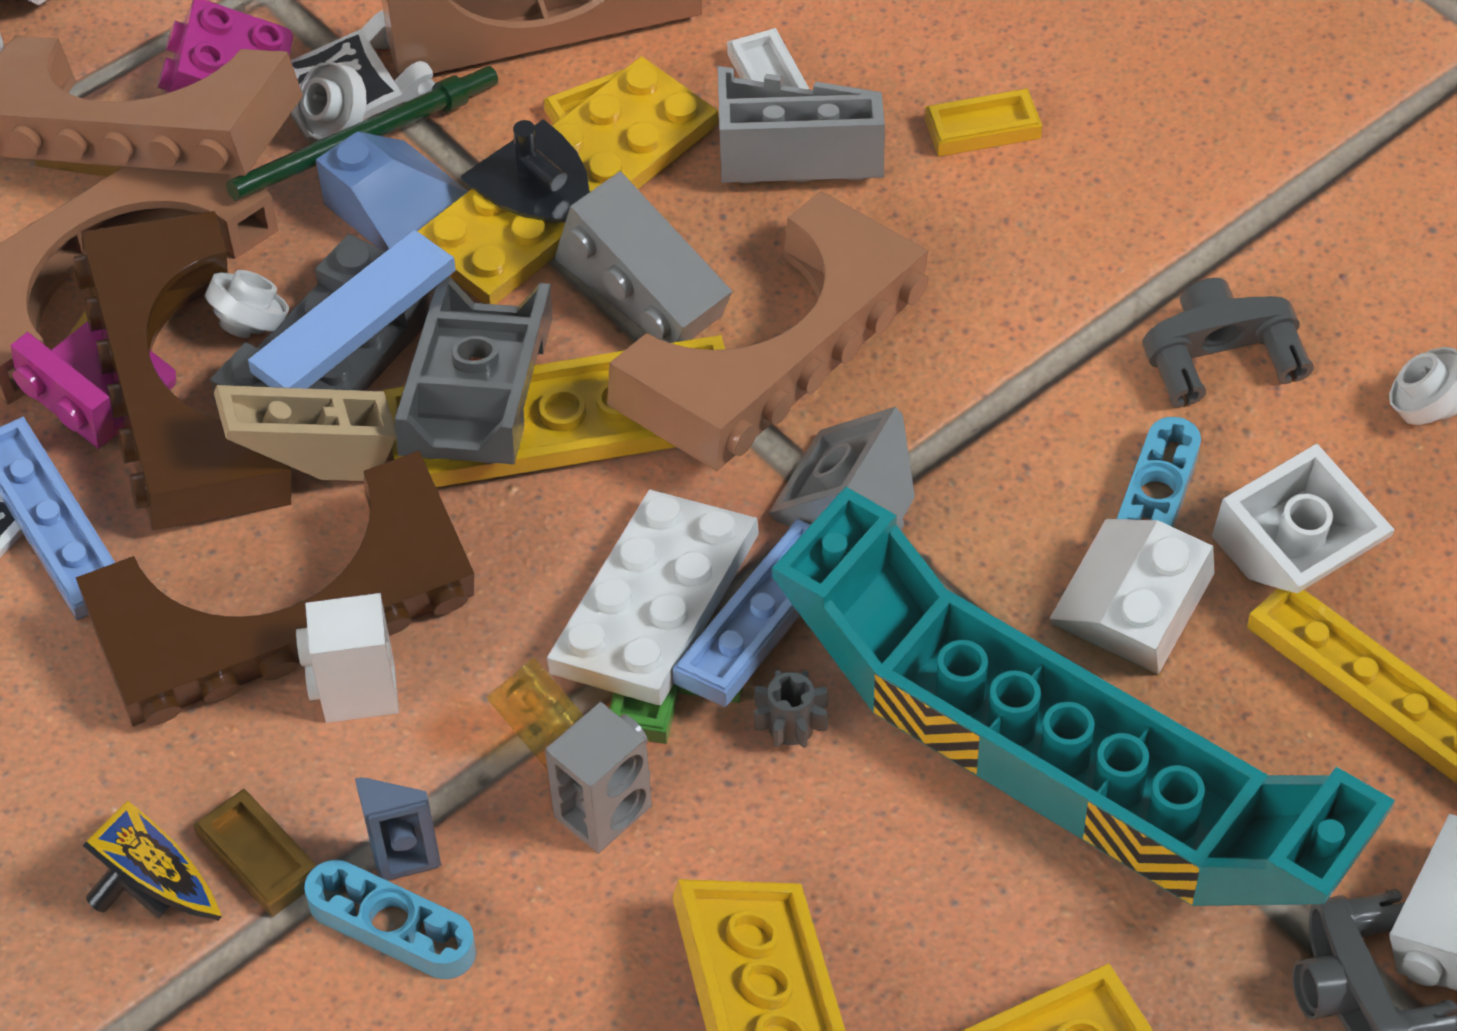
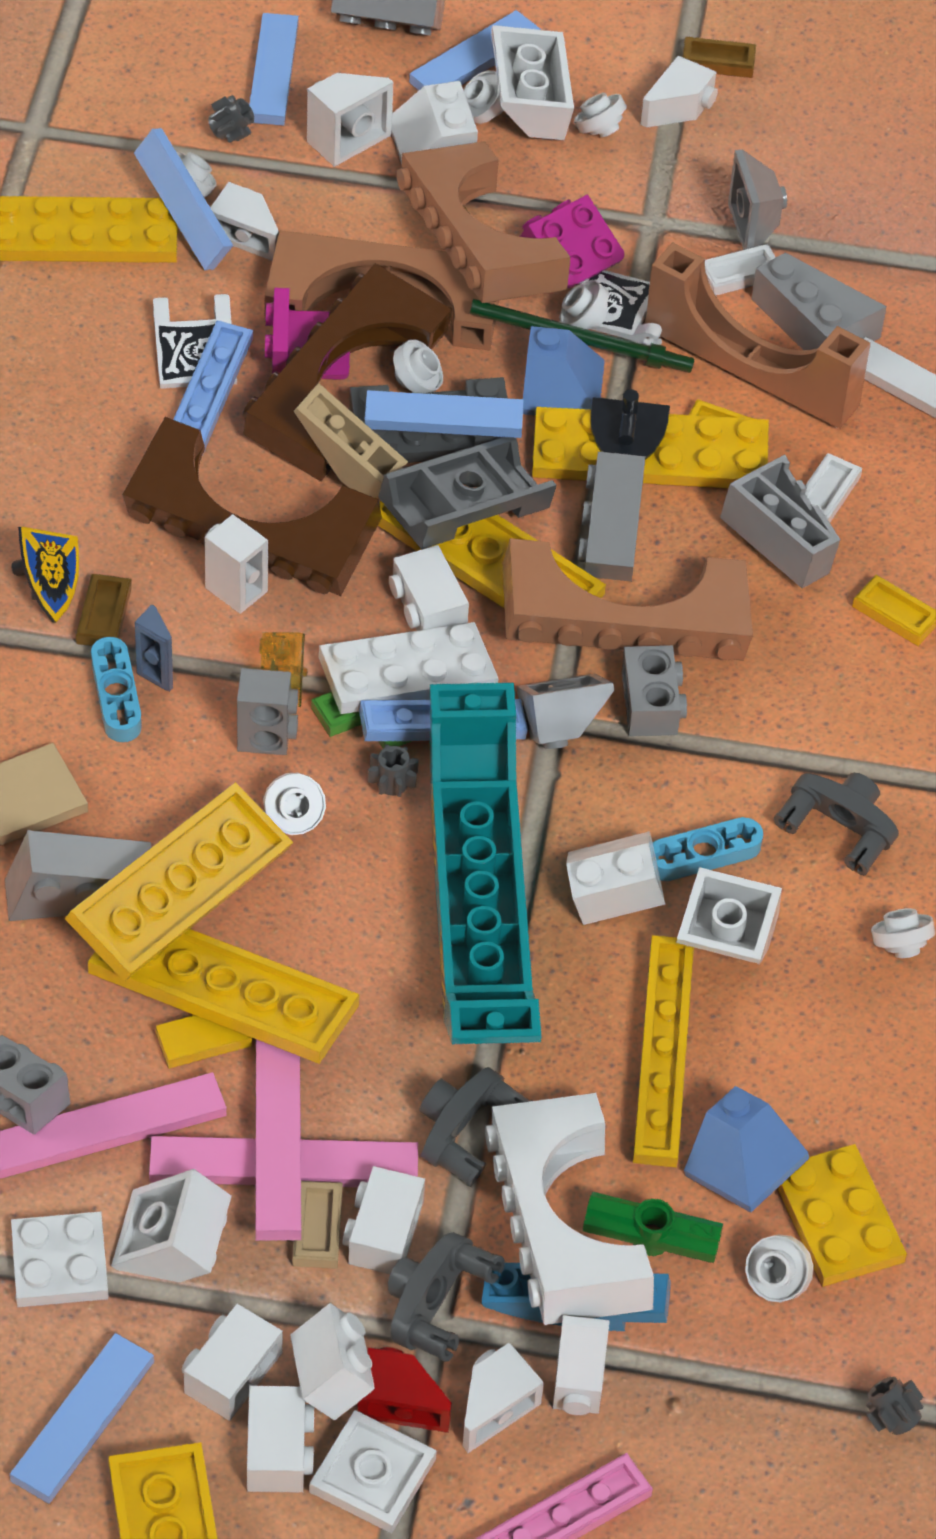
camera: 45 degrees right, 0 degrees up
(569, 501) = (428, 590): none -> white brick
(751, 839) = (294, 803): none -> white plate
(894, 373) = (652, 690): none -> light grey brick

